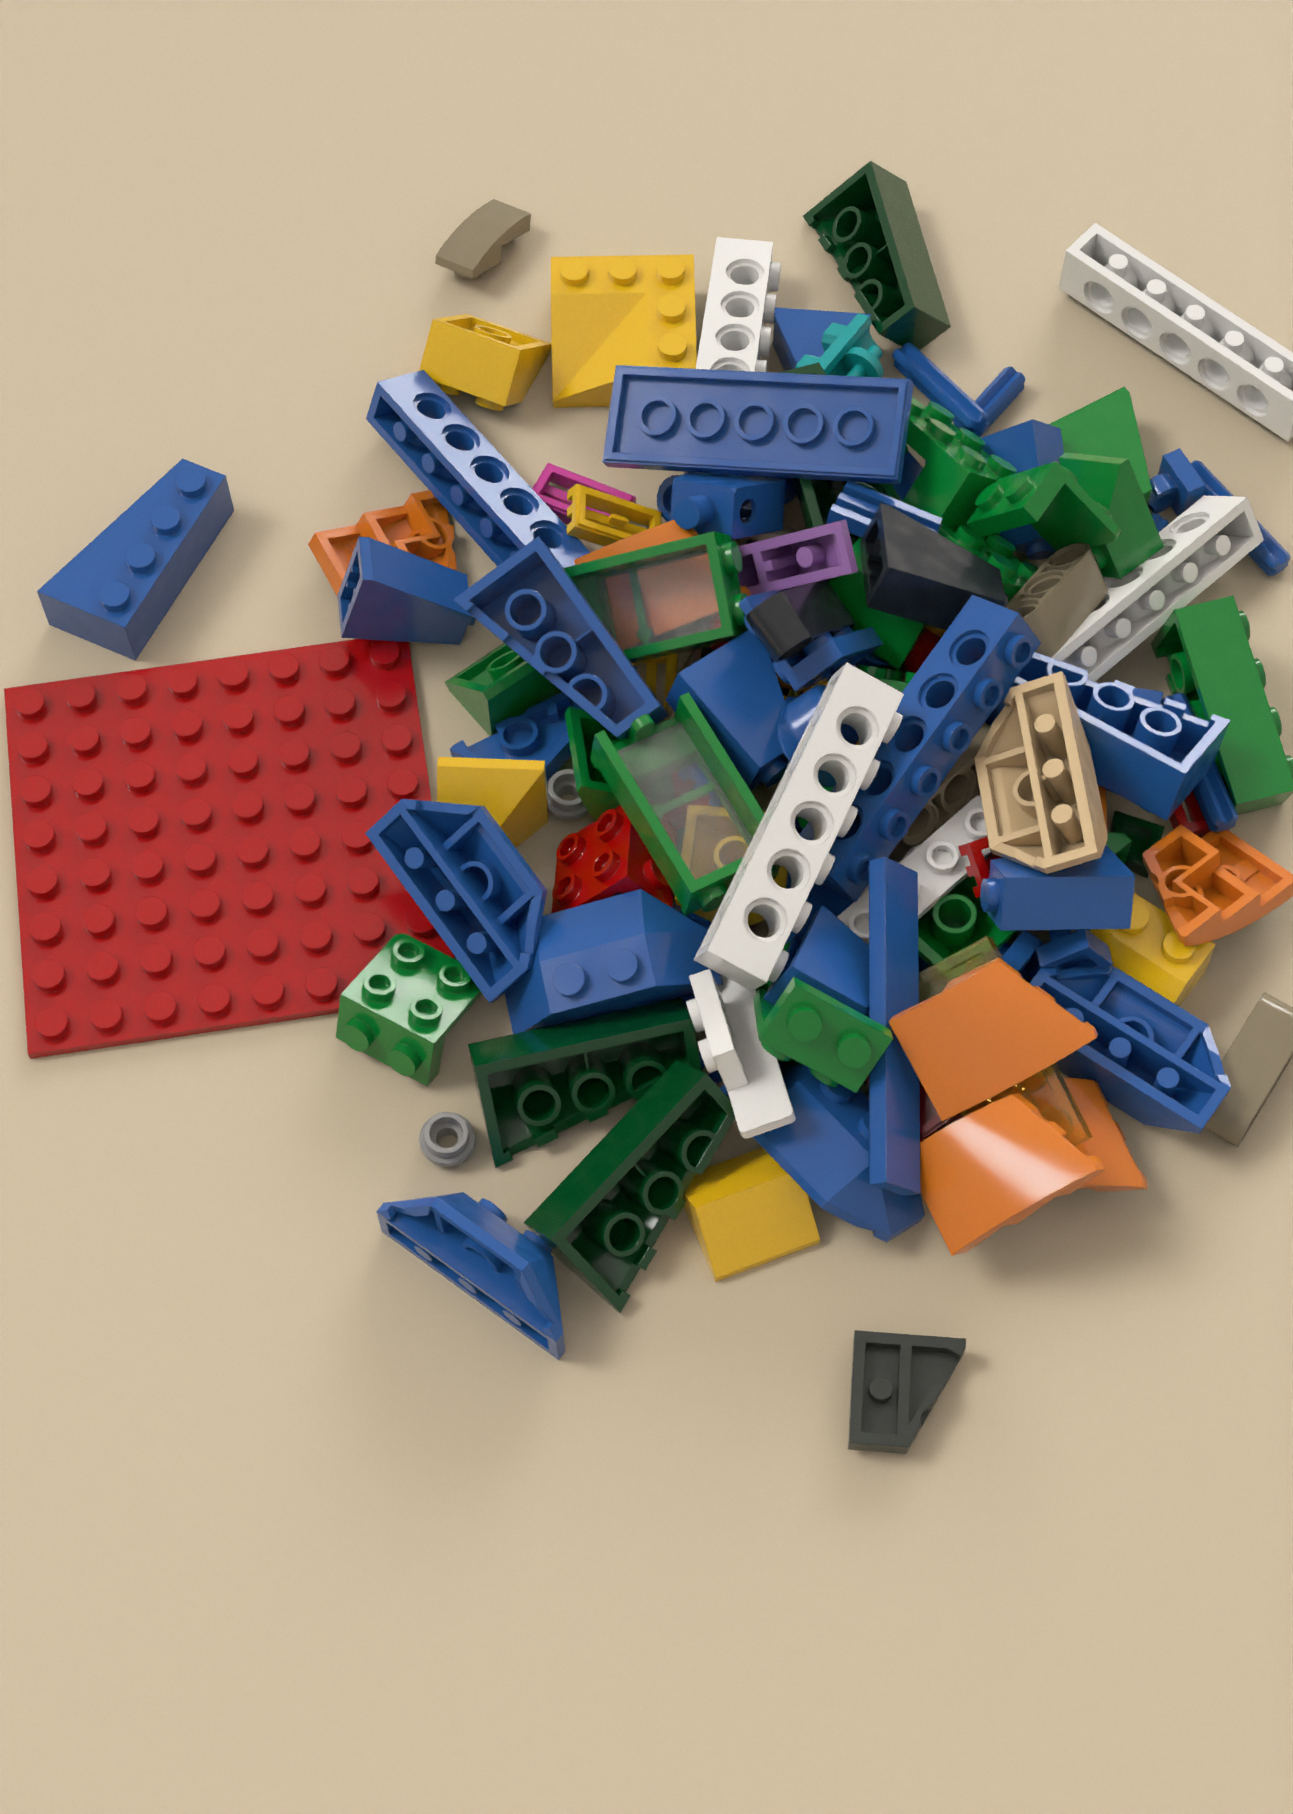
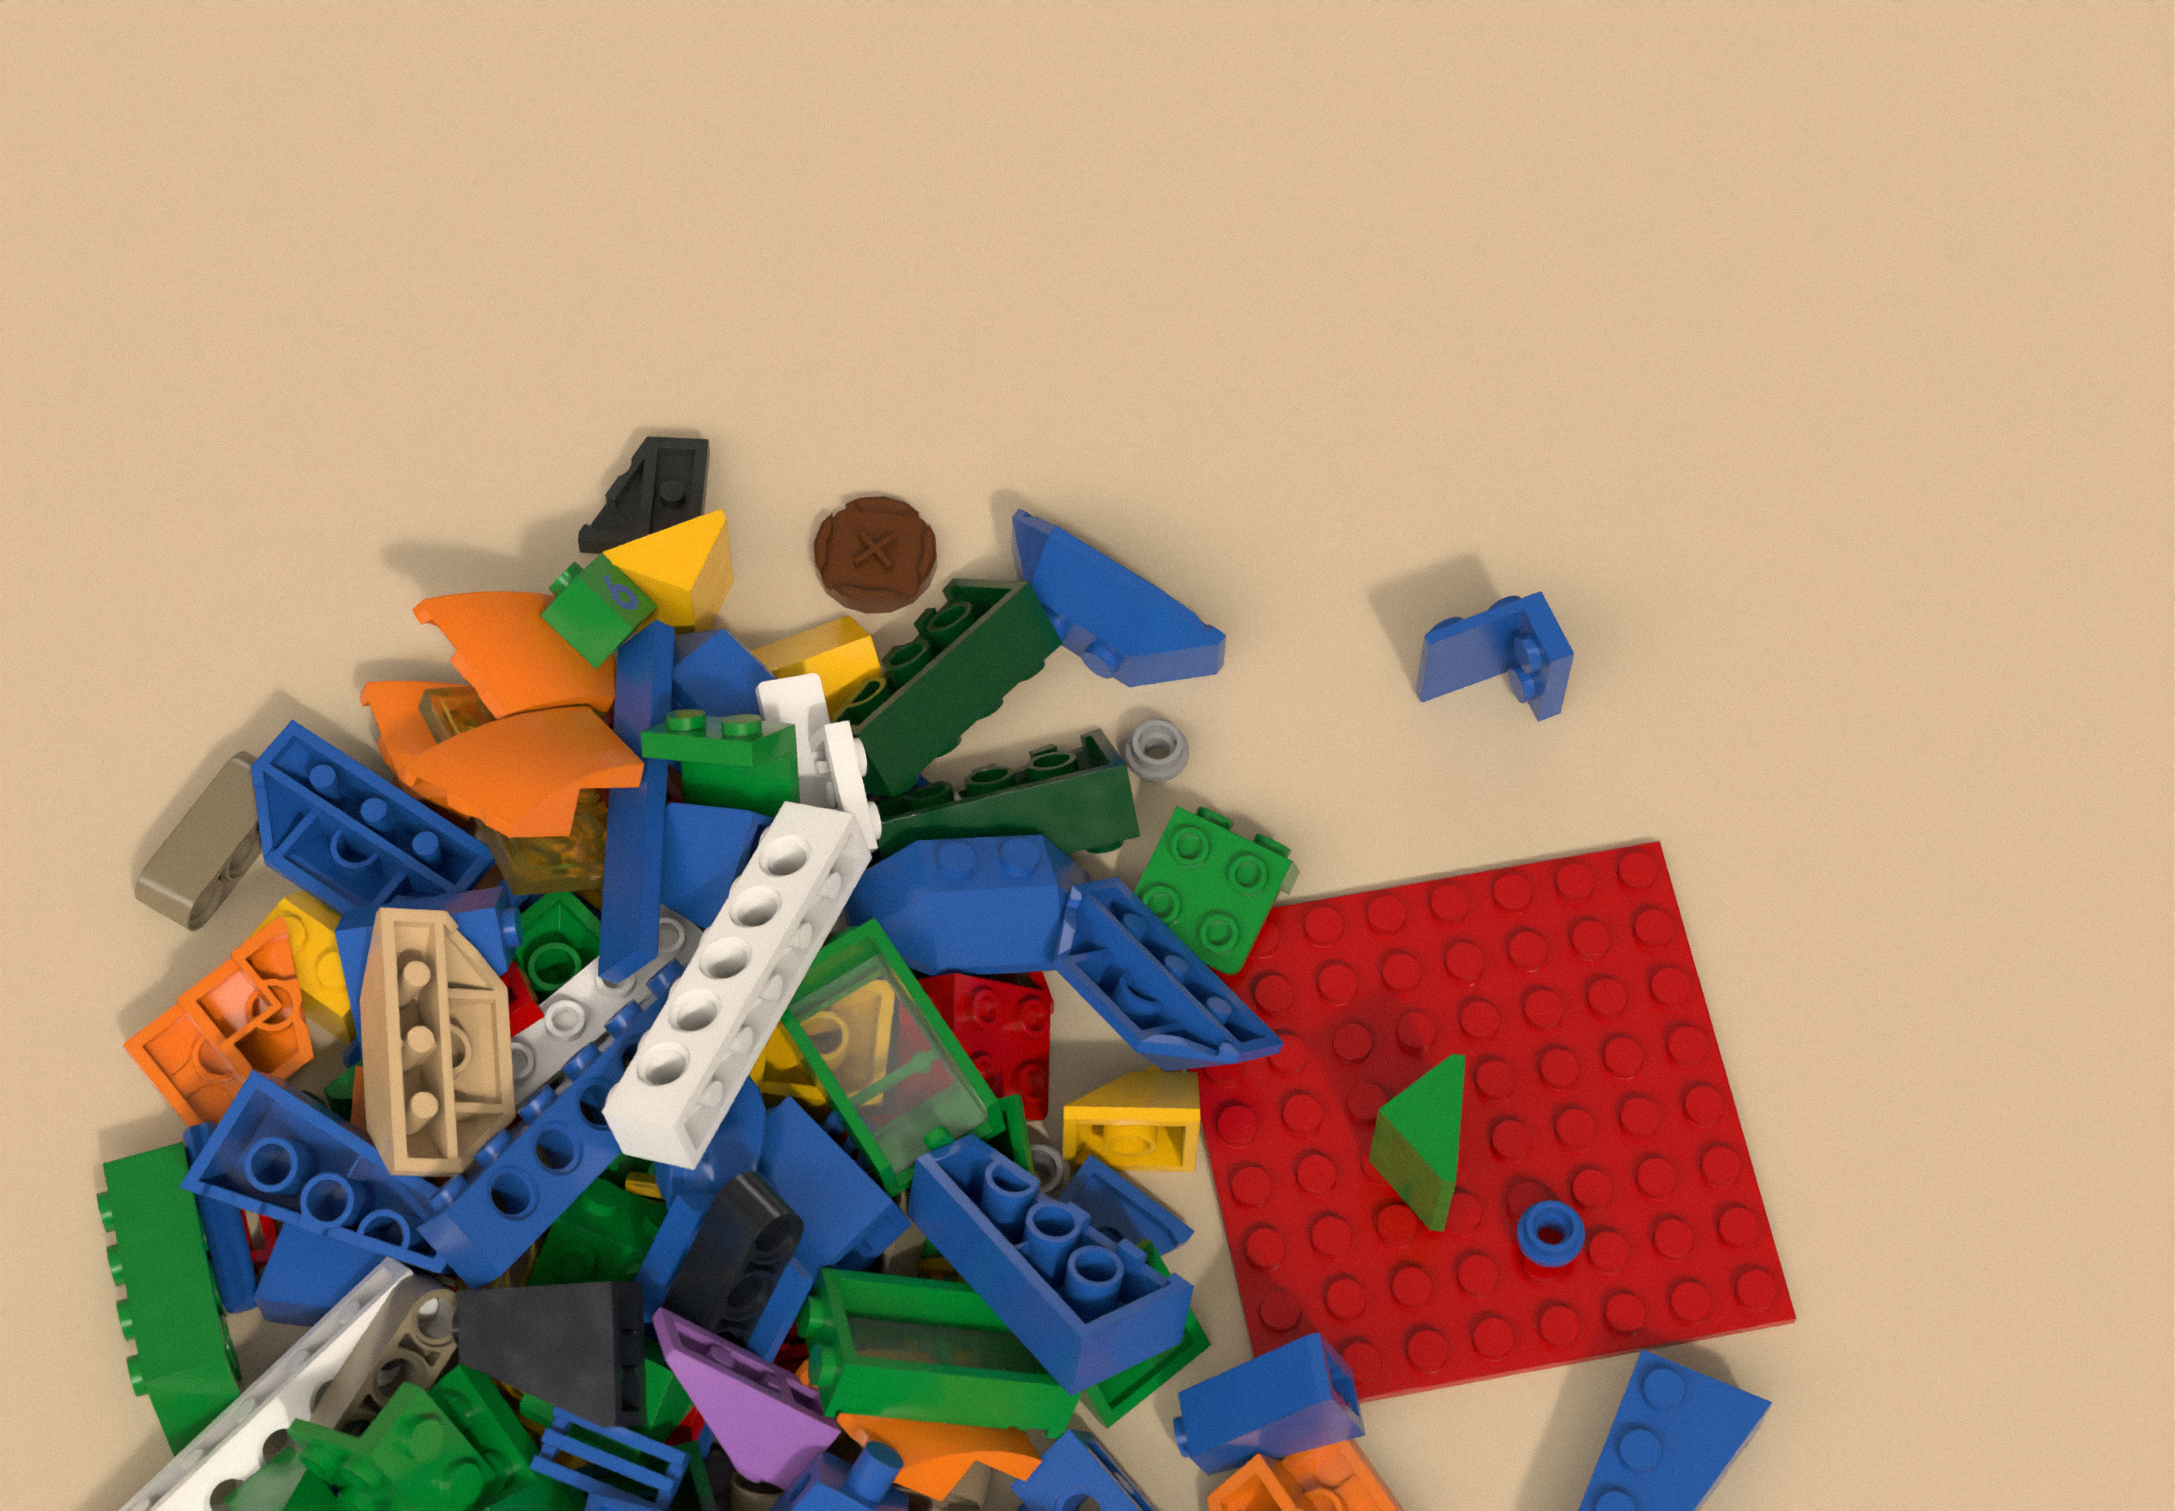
camera: 175 degrees right, 0 degrees up
(143, 1196) = (1509, 637): none -> blue bracket
(174, 717) = (1555, 1216): none -> blue plate
(262, 768) = (1419, 1141): none -> green slope
(691, 1339) = (875, 555): none -> reddish brown tile
(876, 1272) = (681, 571): none -> yellow slope
(939, 1207) = (596, 608): none -> green brick

